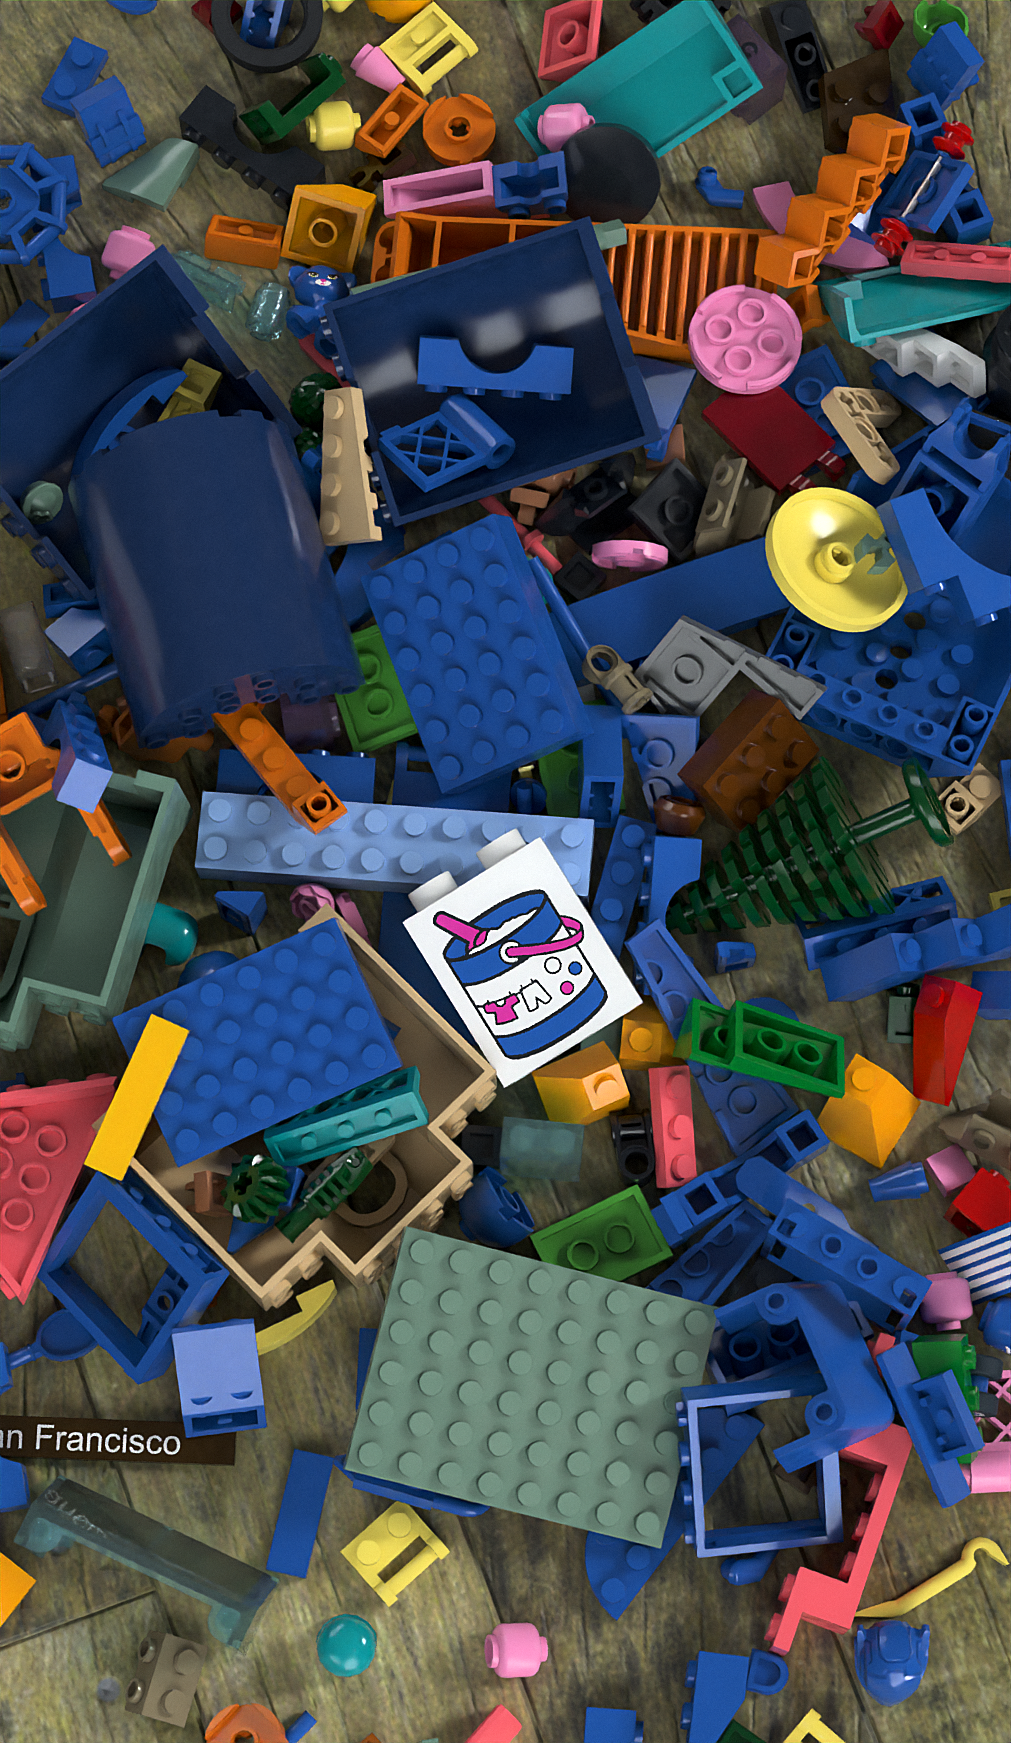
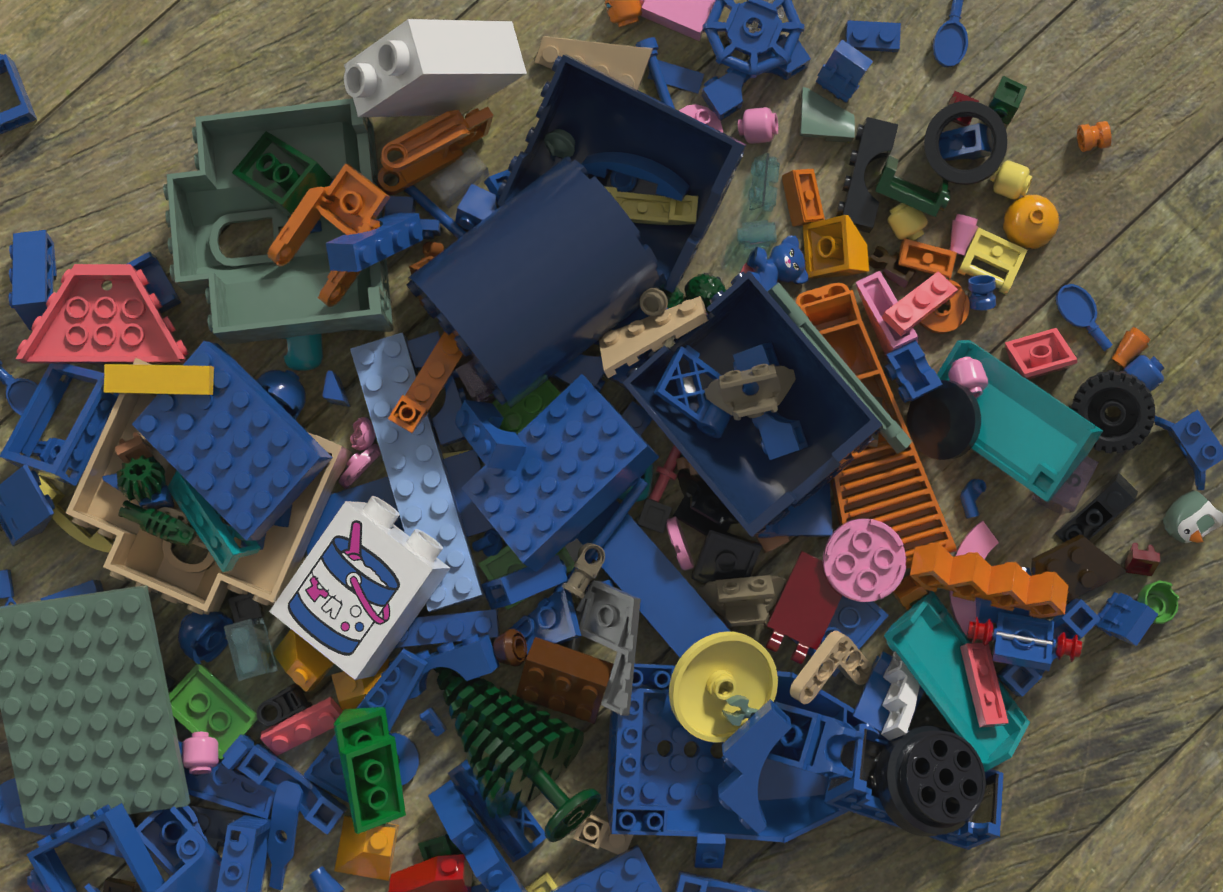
camera: 65 degrees right, 10 degrees up
(308, 446) = (653, 302): none -> dark tan plate
(378, 729) = (494, 446): none -> blue arch
(447, 145) = (919, 303): none -> coral plate
(463, 73) = (982, 292): none -> blue wheel
(470, 405) = (773, 386): none -> dark tan piece
(655, 1268) = (200, 753): none -> bright pink head

